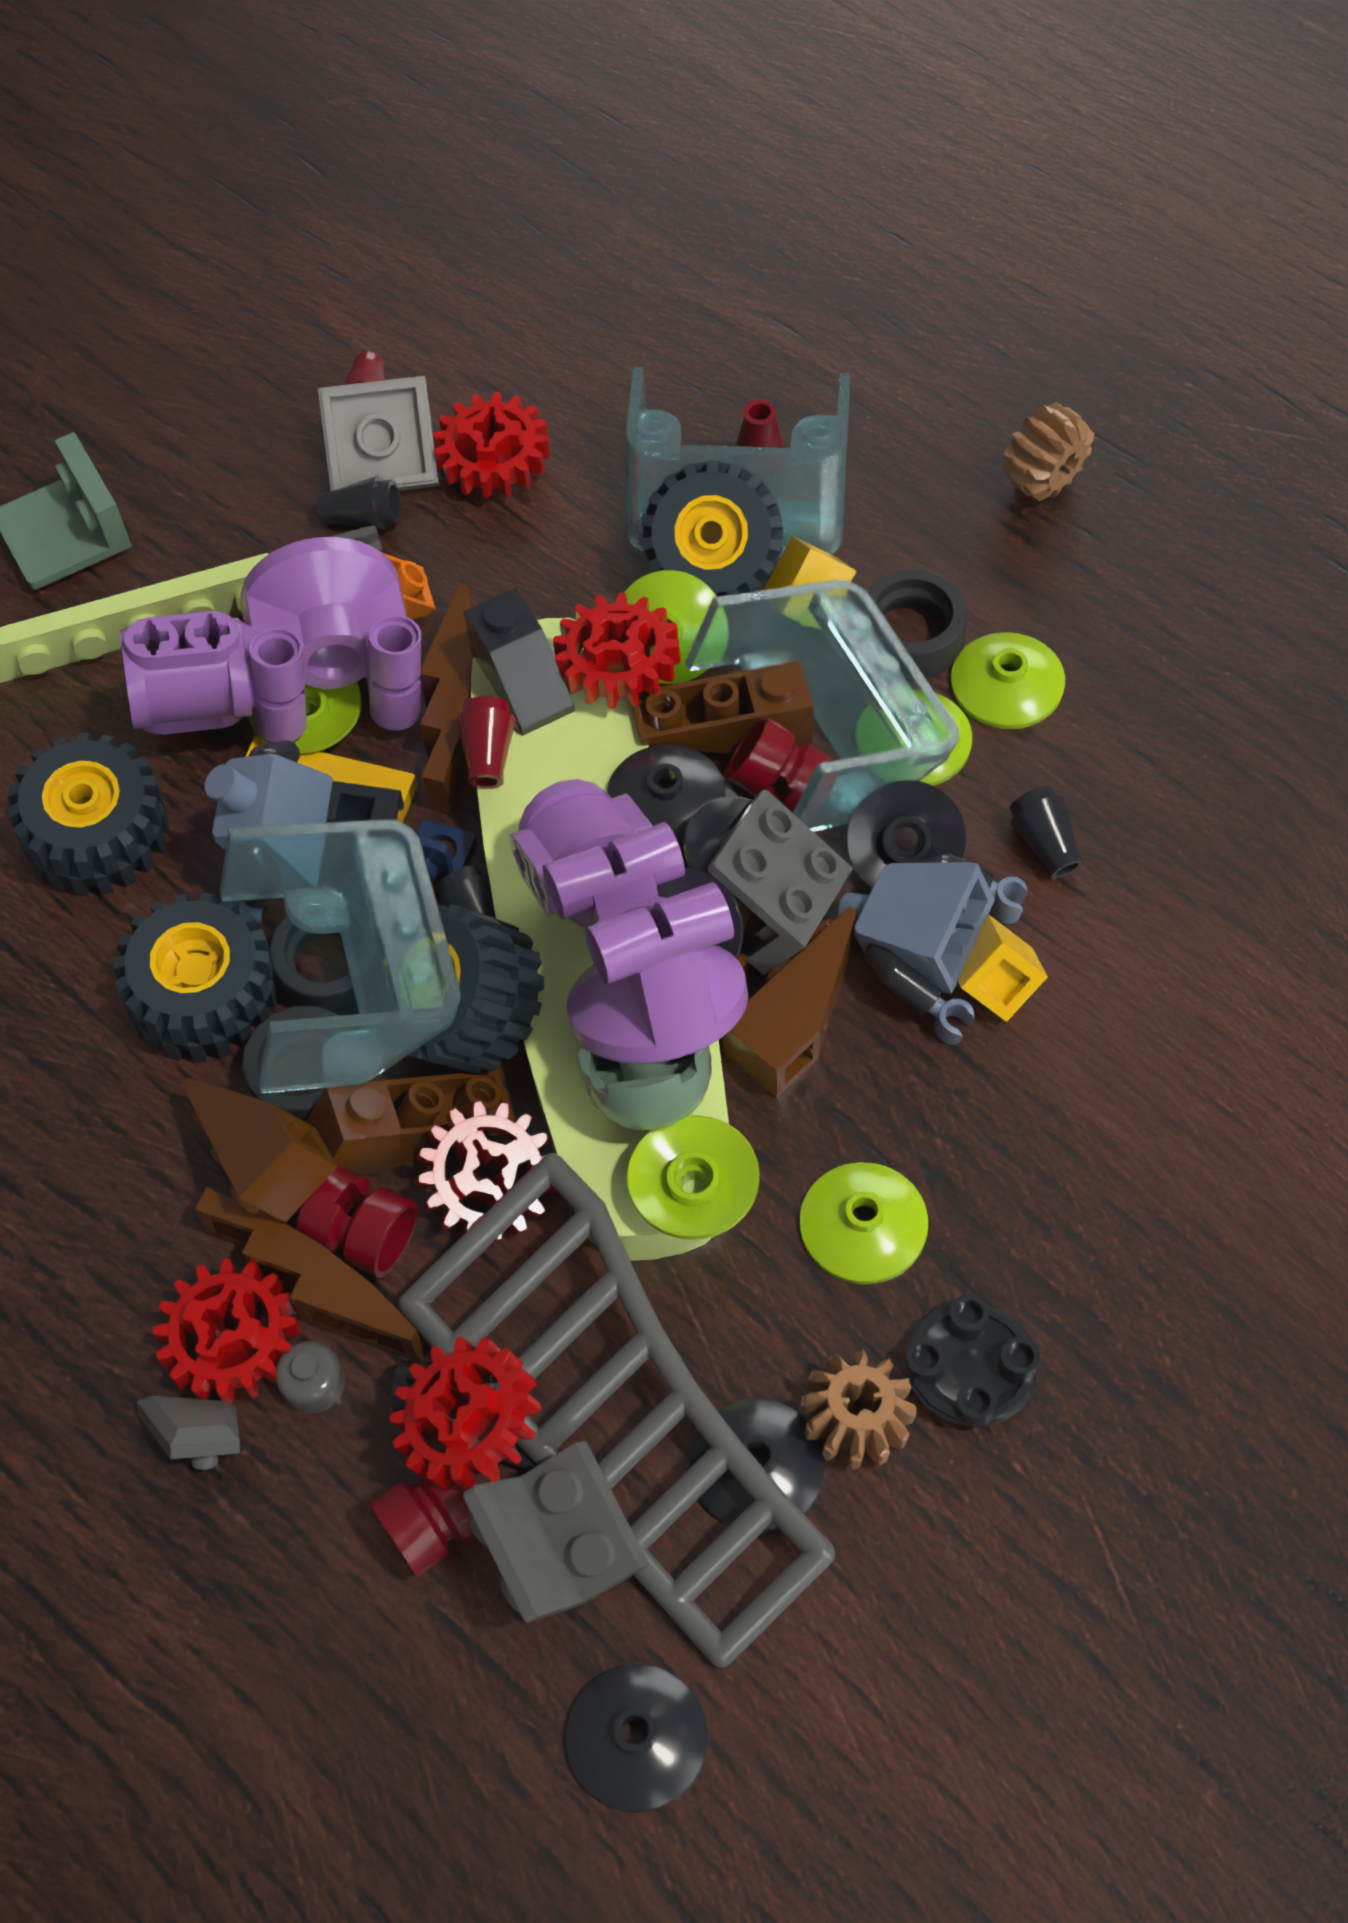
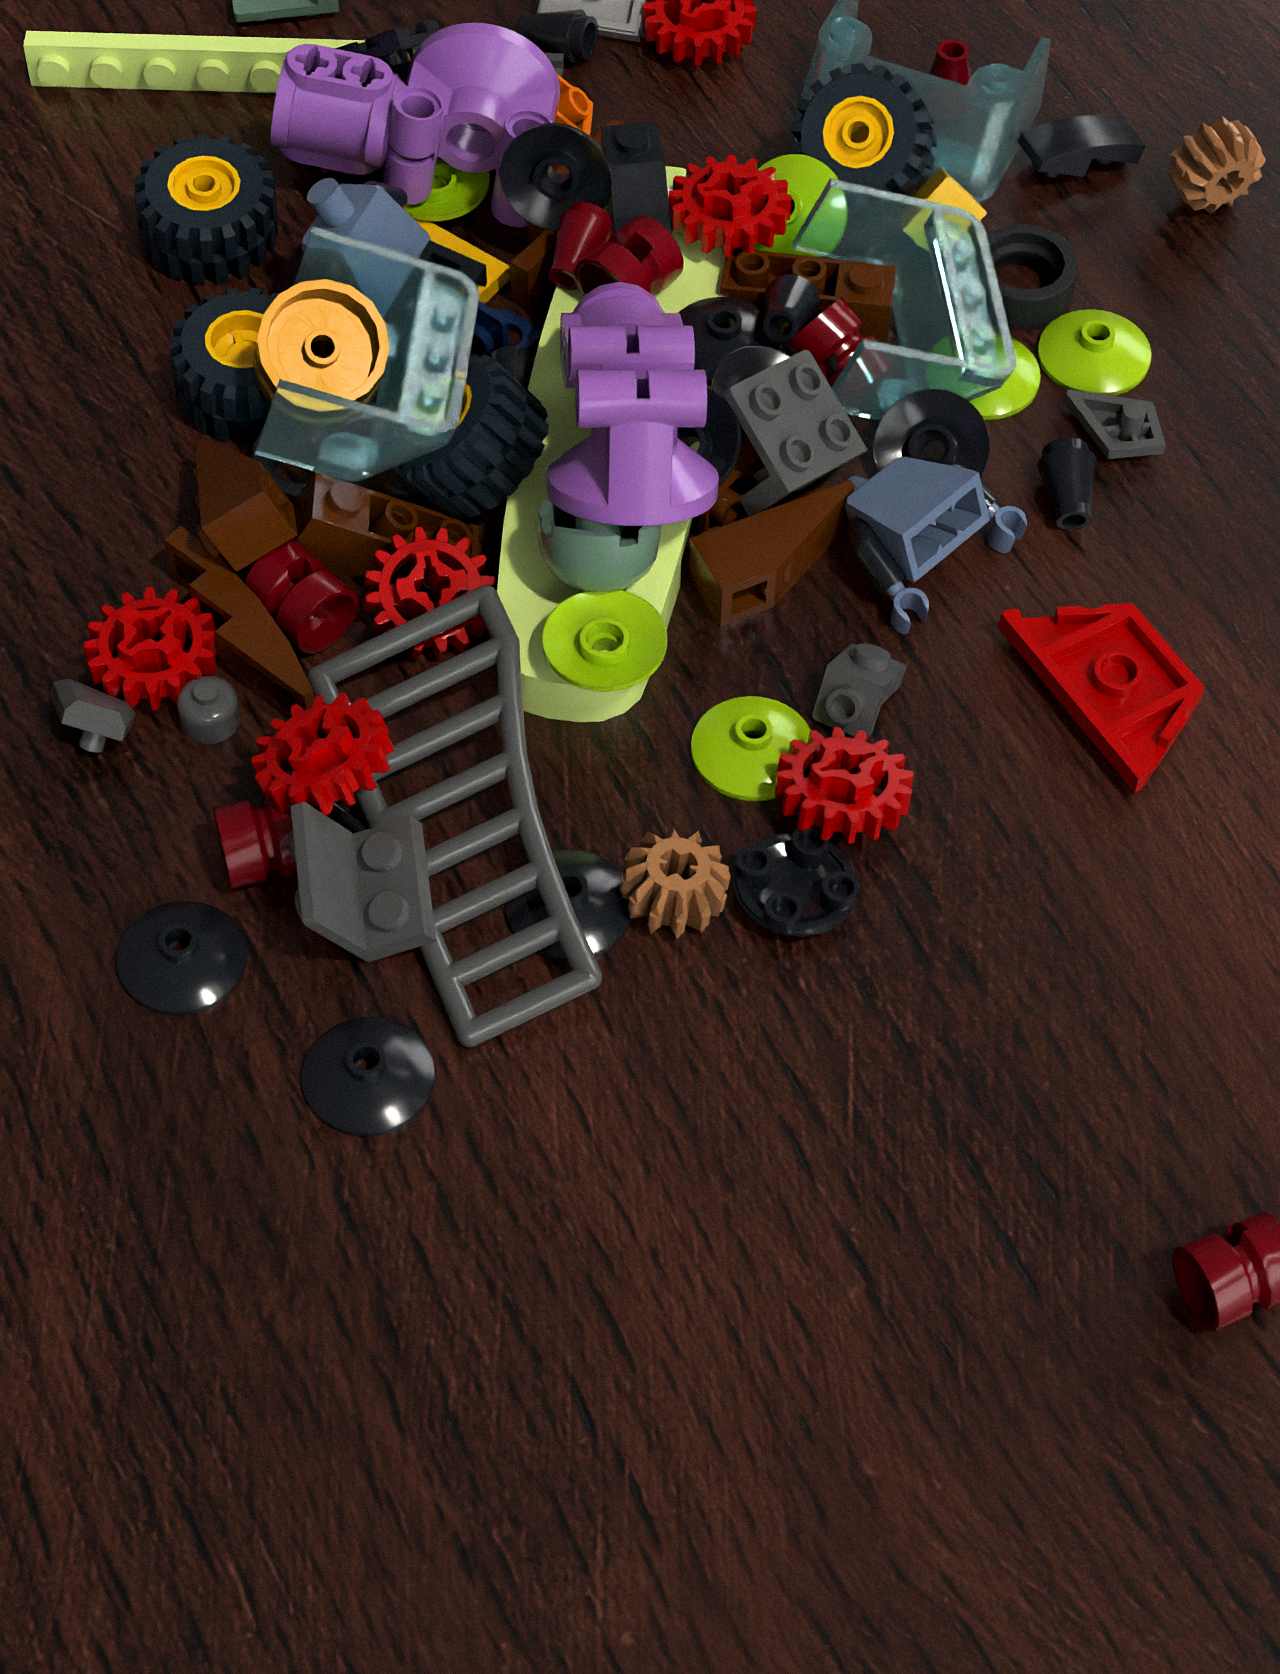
camera: 15 degrees right, 5 degrees down
(212, 587) = (395, 45): none -> black plate
(320, 946) = (320, 319): none -> wheel
(413, 1699) = (185, 978): none -> black dish
(437, 696) = (537, 189): none -> black dish
(550, 747) = (635, 254): none -> dark red wheel
(720, 743) = (789, 306): none -> black cone
(902, 467) = (1072, 143): none -> black slope
(943, 1125) = (857, 687): none -> dark grey bracket
(976, 1241) = (843, 785): none -> red gear
(1001, 970) = (969, 579): yellow panel -> none
(1065, 750) = (1118, 424): none -> dark grey piece
(1176, 1030) = (1111, 679): none -> red wing

